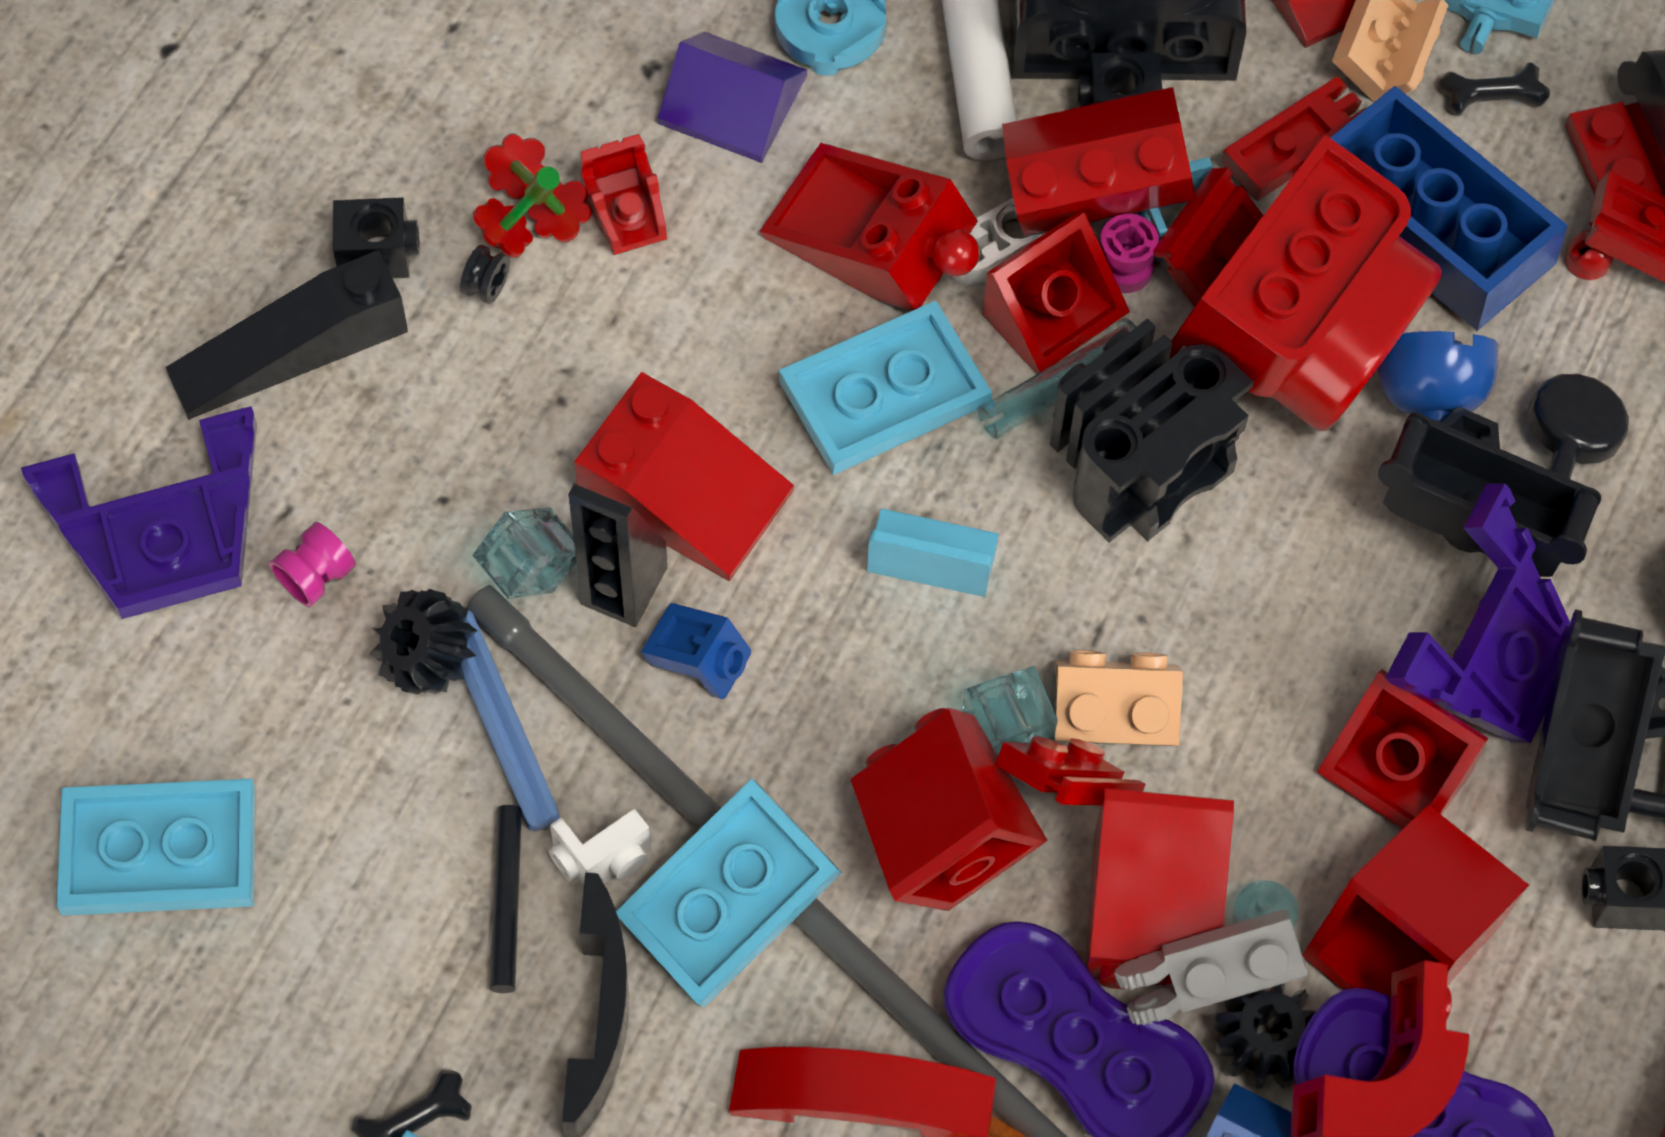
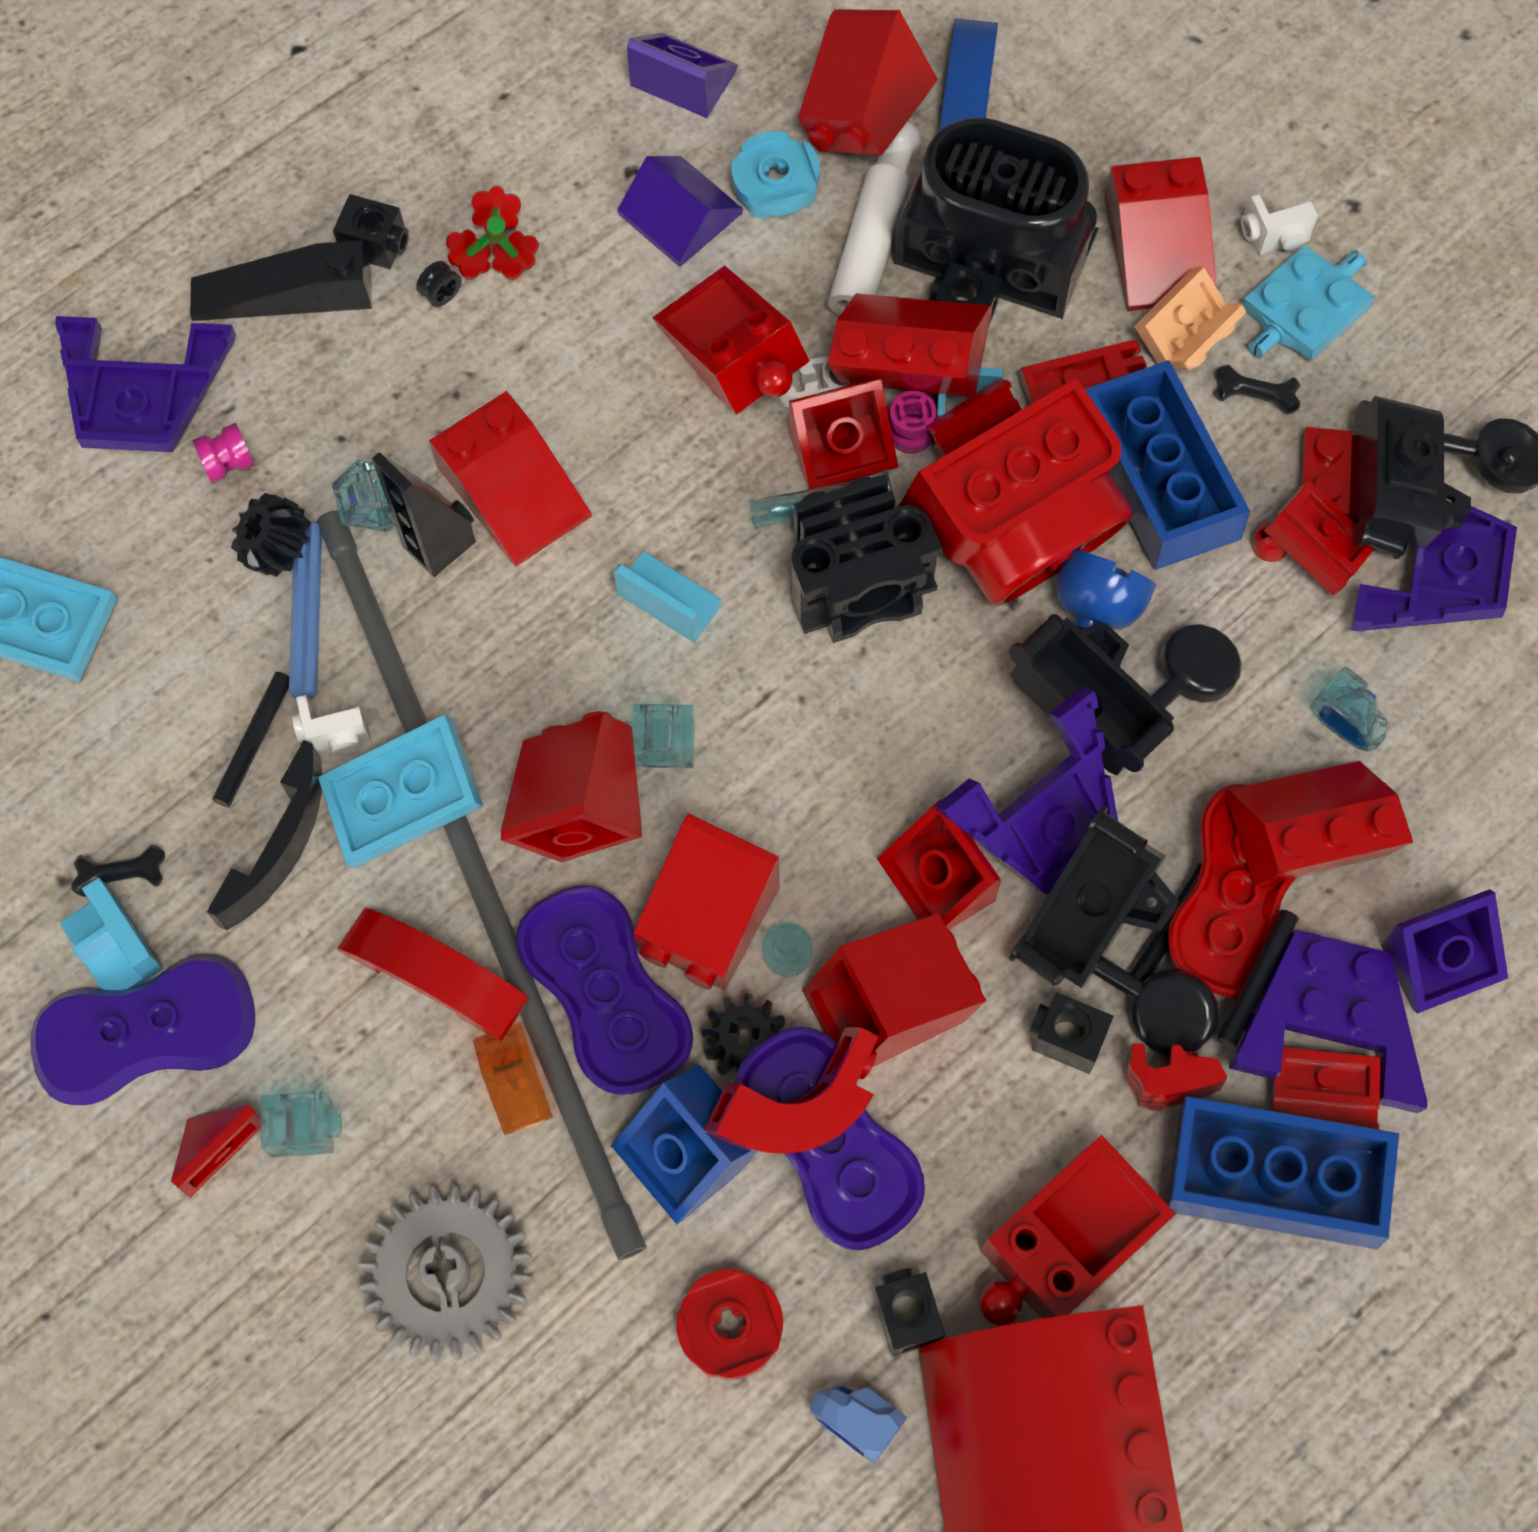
camera: 25 degrees right, 5 degrees up
(623, 194) = (564, 256): red hand -> none
(698, 647) = (466, 608): blue bracket -> none
(884, 387) = (687, 462): medium azure plate -> none
(1070, 770) = (678, 791): red plate -> none
(1118, 699) = (750, 751): light nougat bracket -> none
(1214, 967) = (717, 974): light grey hinge -> none

